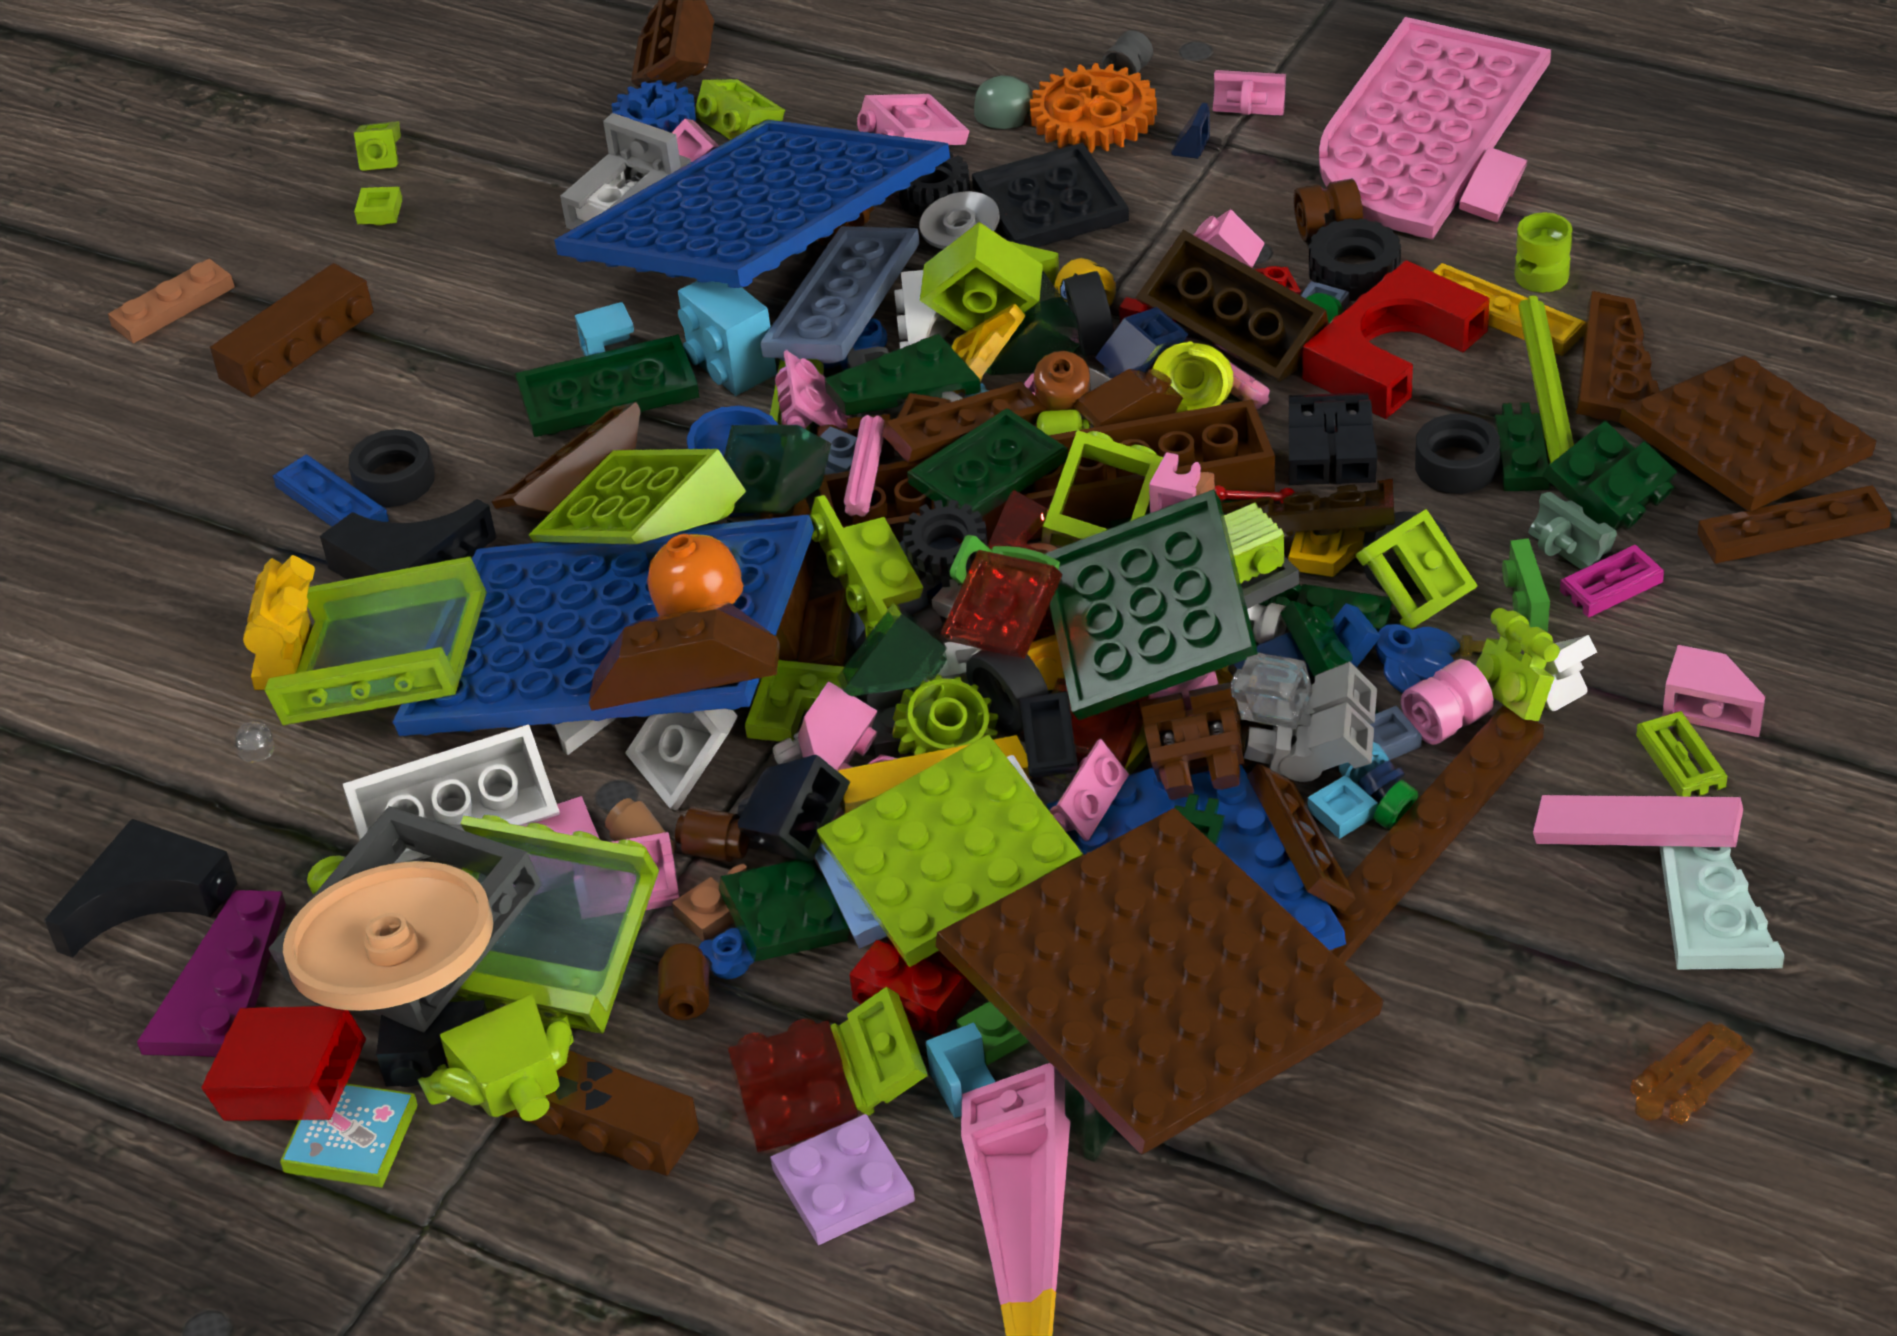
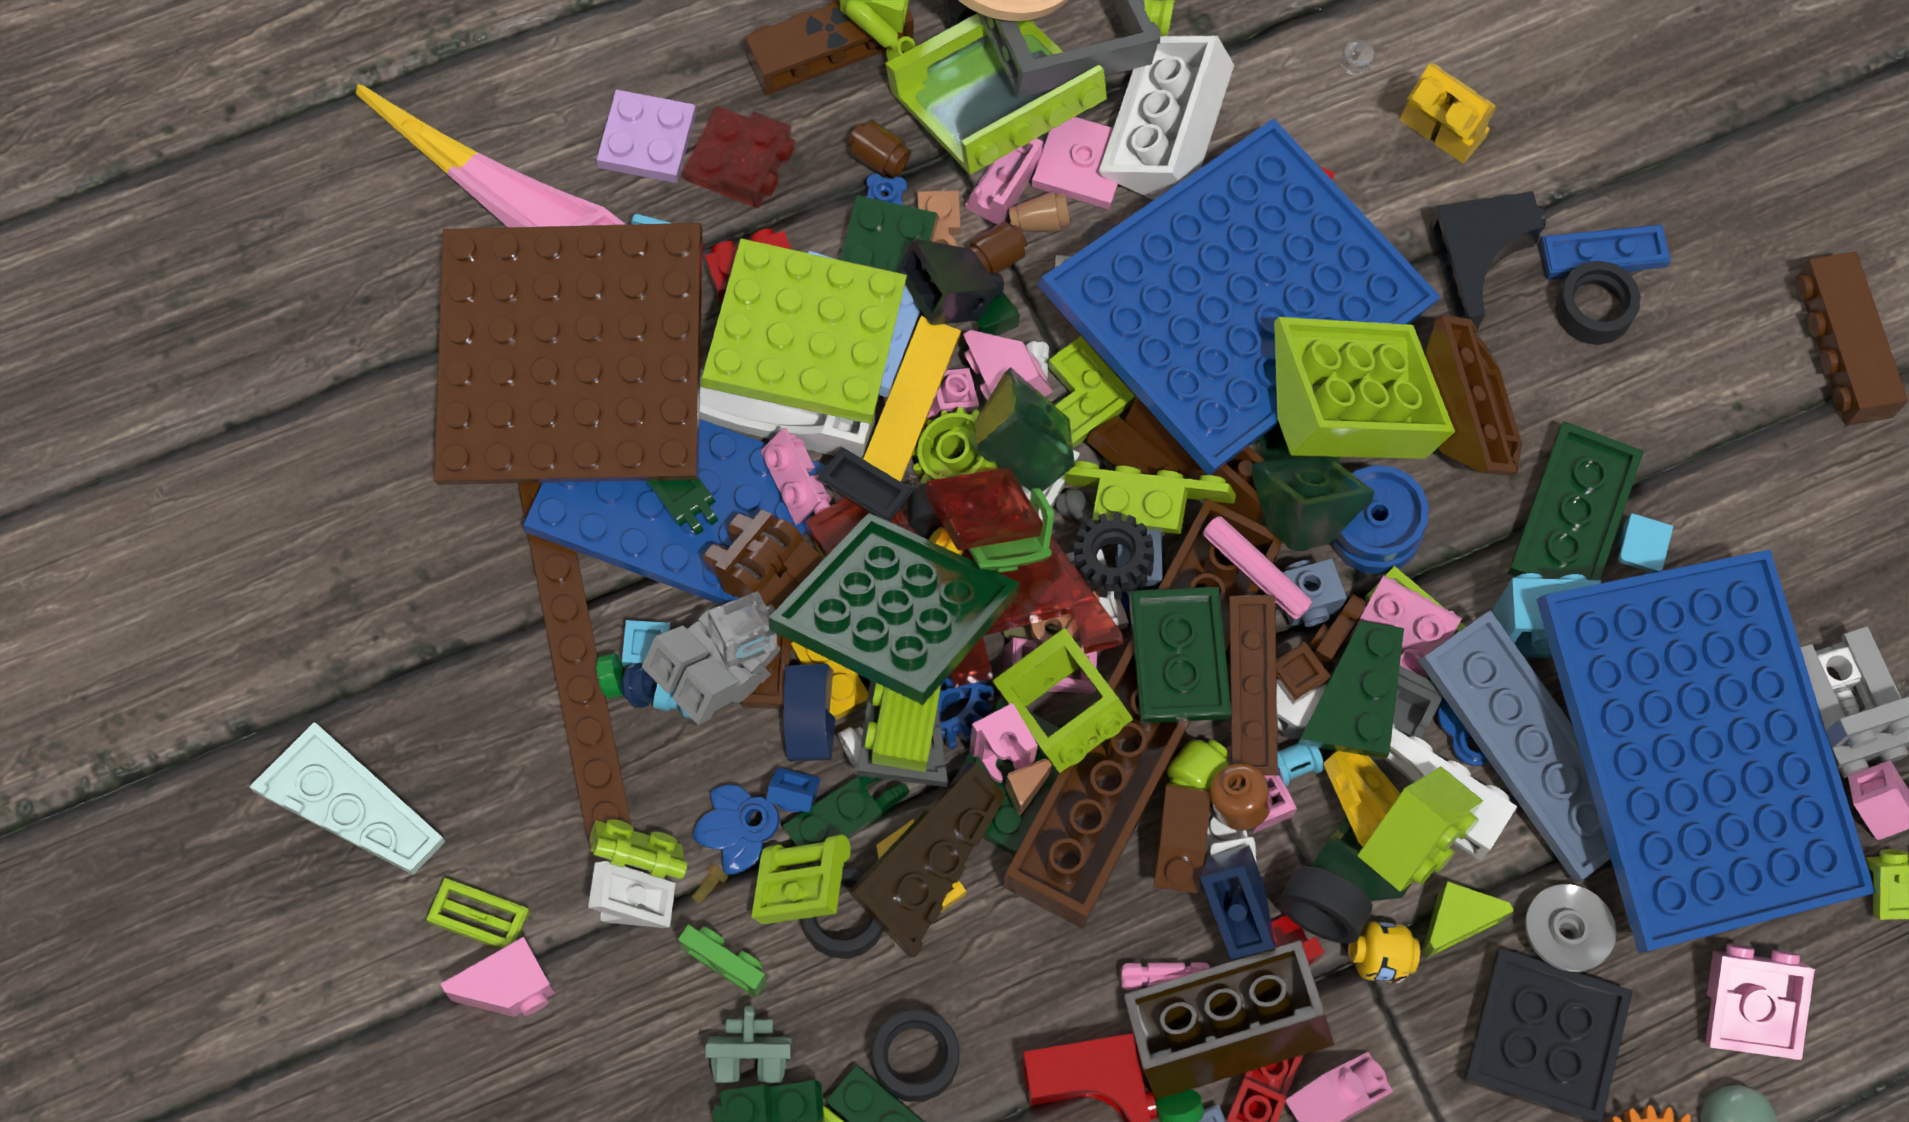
camera: 120 degrees right, 25 degrees up
(383, 641) = (1365, 163): panel -> none
(683, 655) = (1116, 271): reddish brown wedge -> none
(693, 574) = (1202, 338): orange cylinder -> none
(878, 1051) = (714, 207): lime plate -> none
(948, 178) = (1644, 982): black tyre -> none
(1197, 374) = (1178, 933): neon yellow helmet -> none
(1247, 495) = (1022, 826): red hinge -> none
(1301, 837) = (630, 576): reddish brown tile -> none
(1315, 637) = (777, 747): dark green plate -> none
(1338, 437) = (1019, 972): black hips -> none
(1395, 733) = (688, 743): sand blue tile -> none
(1447, 701) = (664, 795): bright pink wheel -> none
(1616, 585) = (675, 1081): dark pink tile -> none
(1638, 820) = (436, 805): bright pink tile -> none
(1651, 1105) = (237, 600): clear orange piece -> none

